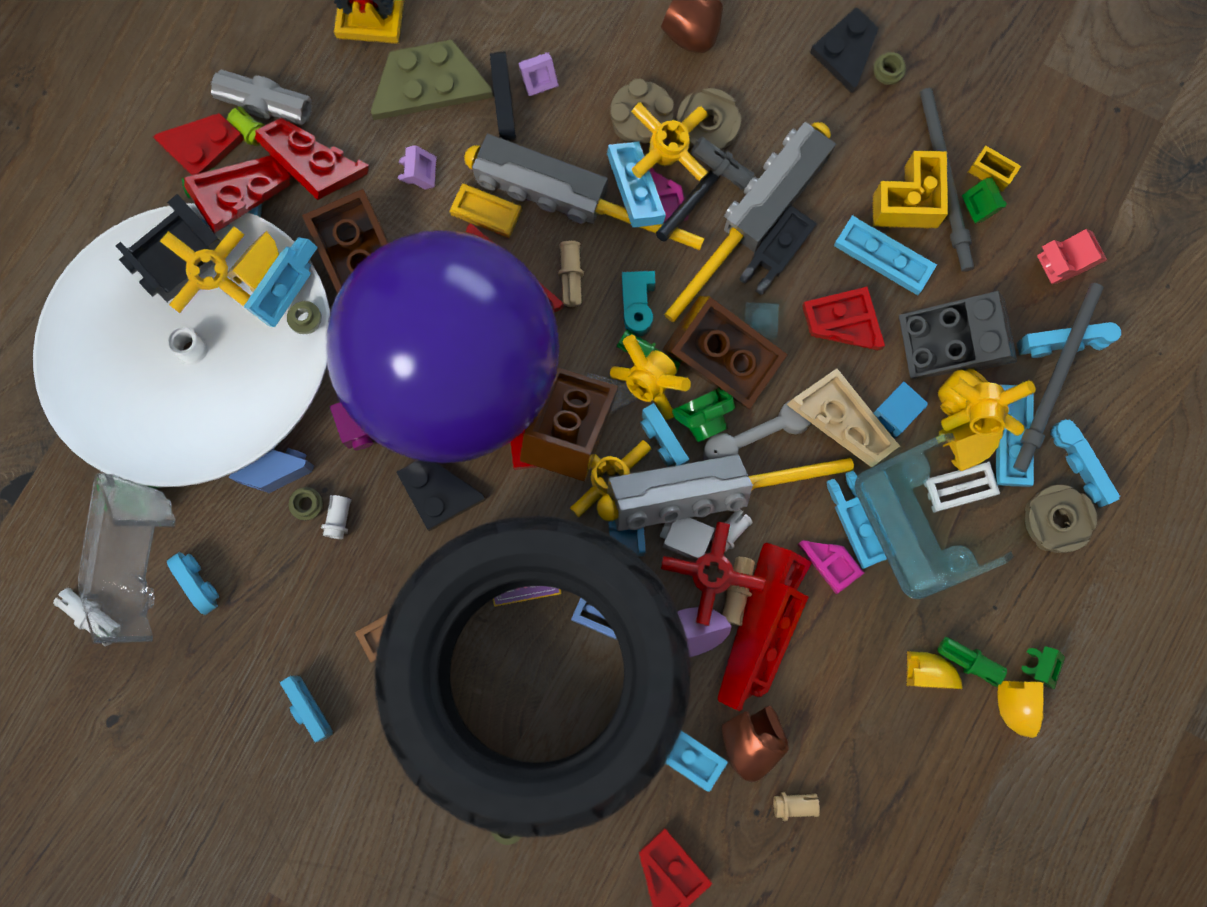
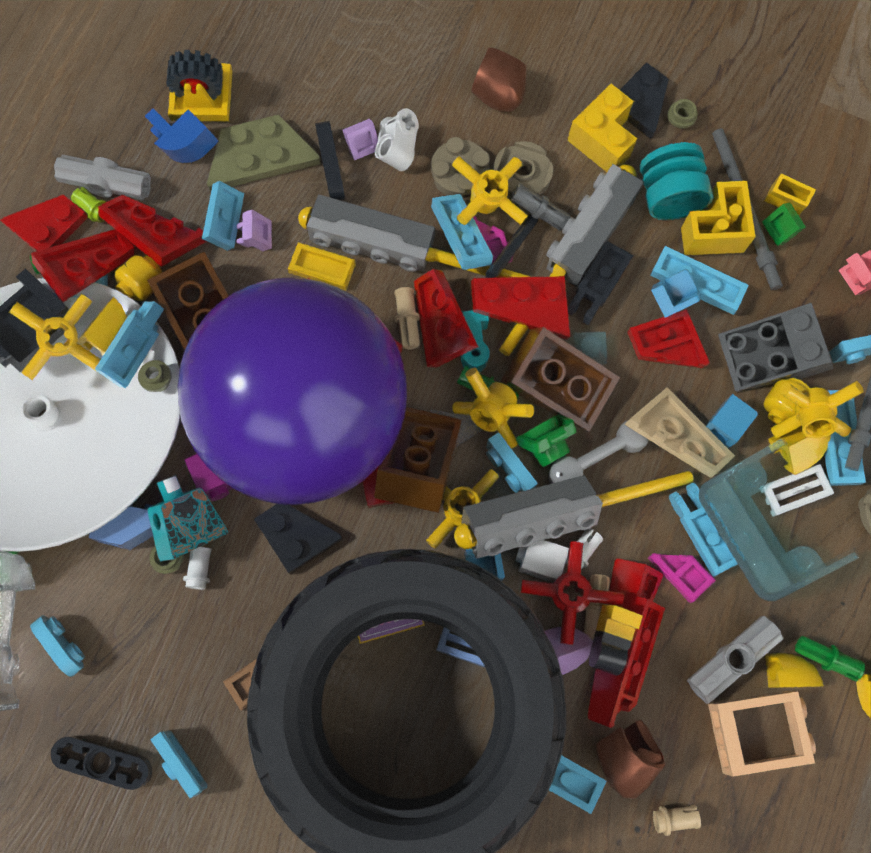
camera: 10 degrees left, 5 degrees down
(211, 683) = (81, 746): none -> black beam
(288, 208) = (133, 277): none -> yellow head
(324, 468) = (183, 520): none -> torso
(350, 62) = (184, 140): none -> blue brick
(385, 148) = (223, 215): none -> medium azure plate
(576, 77) = (397, 139): none -> white piece
(606, 280) = (441, 320): none -> red wing
(695, 265) = (525, 301): none -> red wing
(749, 623) = (613, 638): none -> leg
(795, 82) = (600, 130): none -> yellow brick
(857, 268) = (676, 292): none -> dark azure panel
(857, 735) = (728, 739): none -> light nougat window
(871, 145) = (676, 181): none -> teal wheel
(891, 641) = (718, 671): none -> light grey piece

